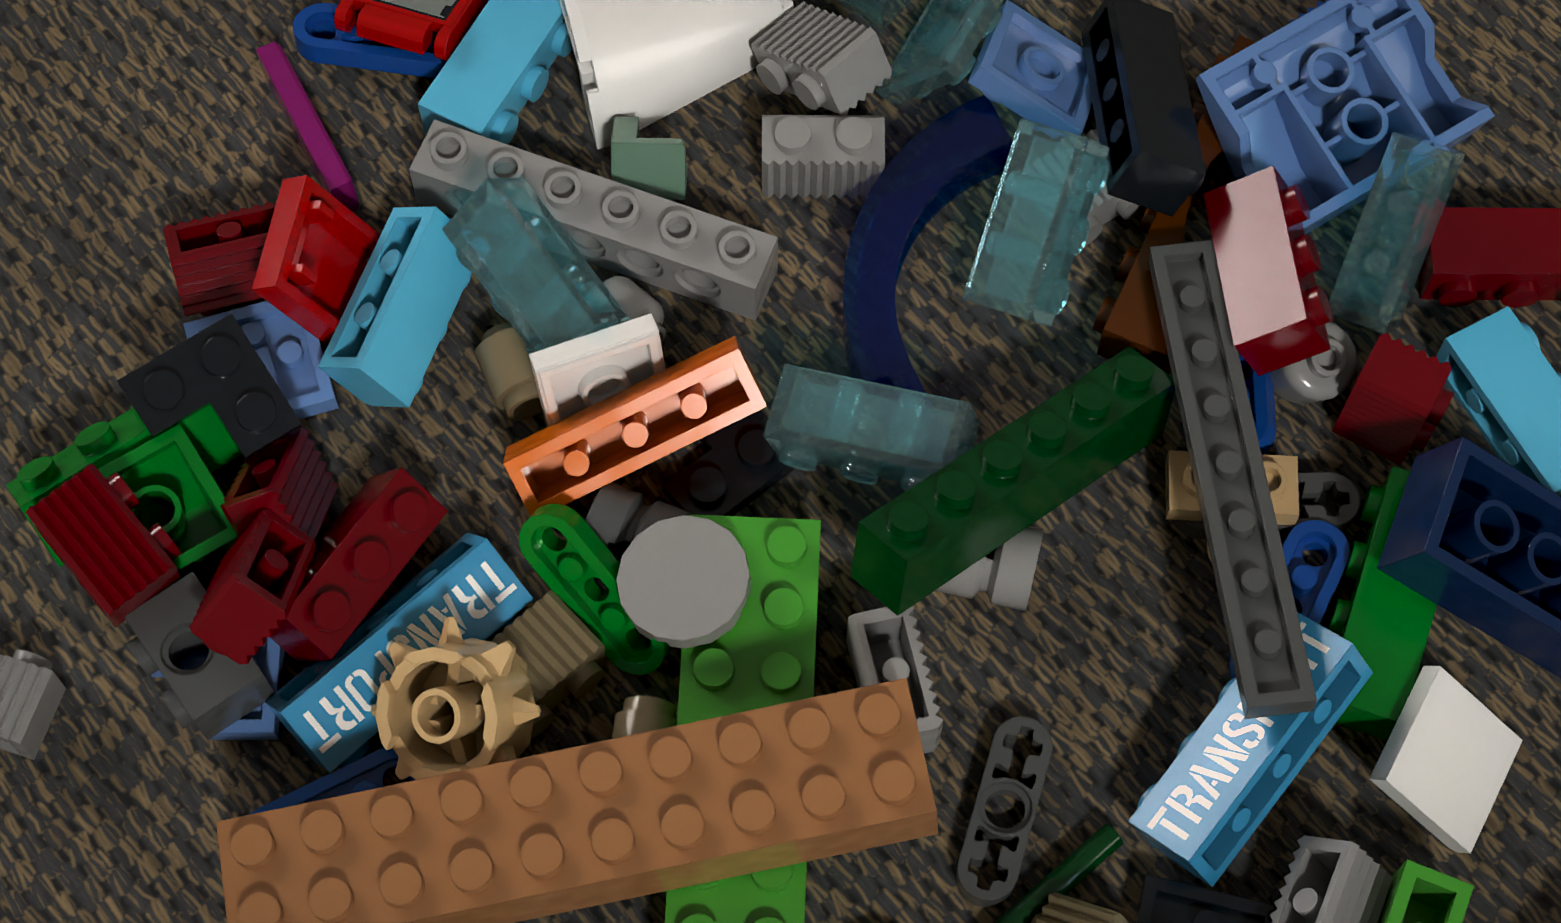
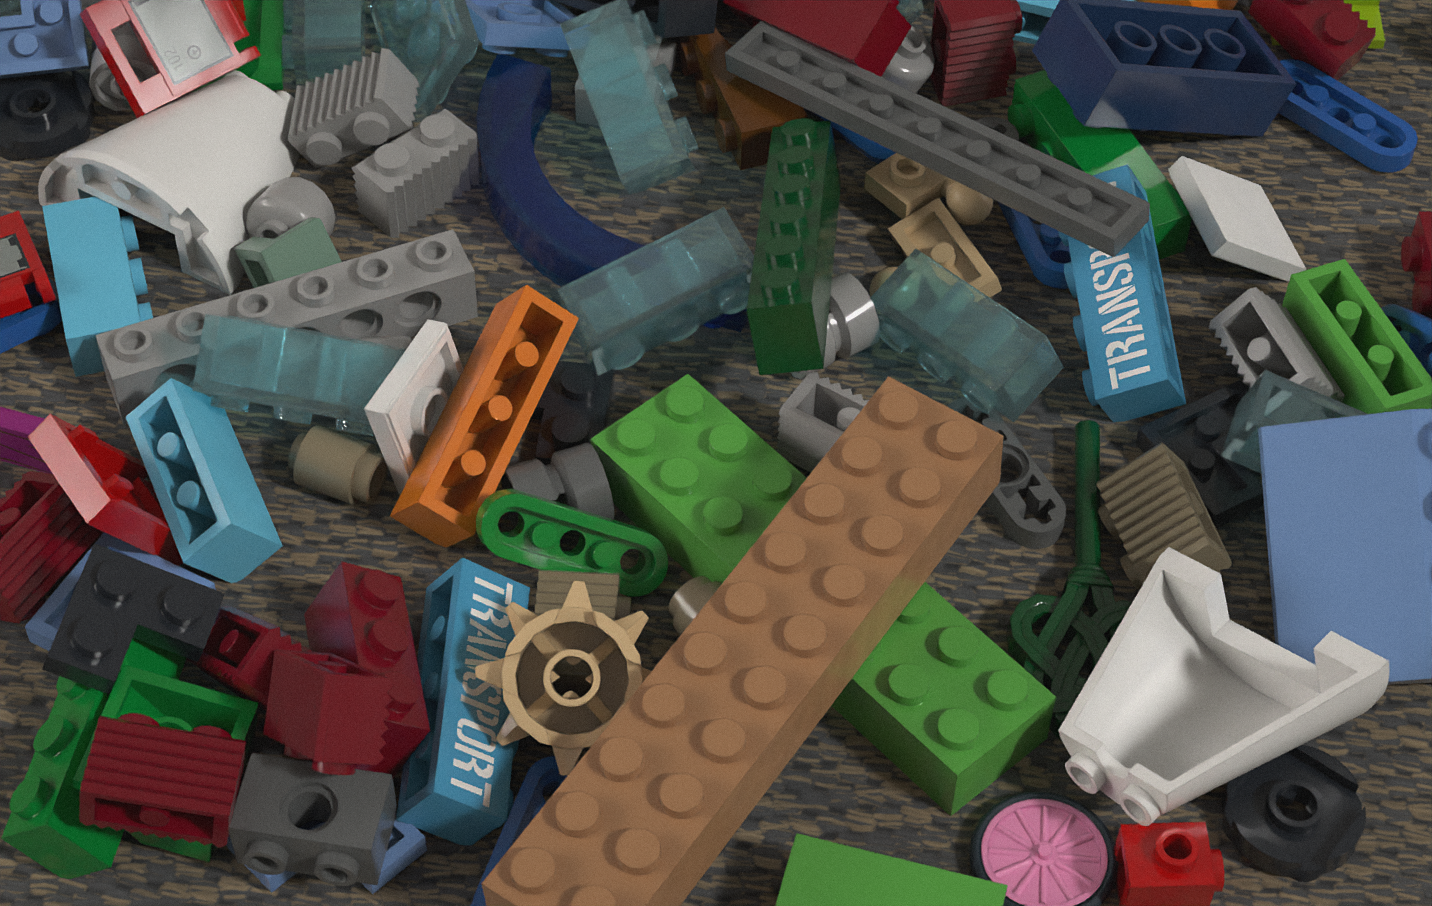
camera: 45 degrees left, 15 degrees down
(684, 581) = (643, 471): light grey tile -> none
(690, 113) = (287, 205): none -> light grey head
(1078, 672) = (964, 337): none -> clear light blue brick
(1155, 583) = (941, 239): none -> tan plate

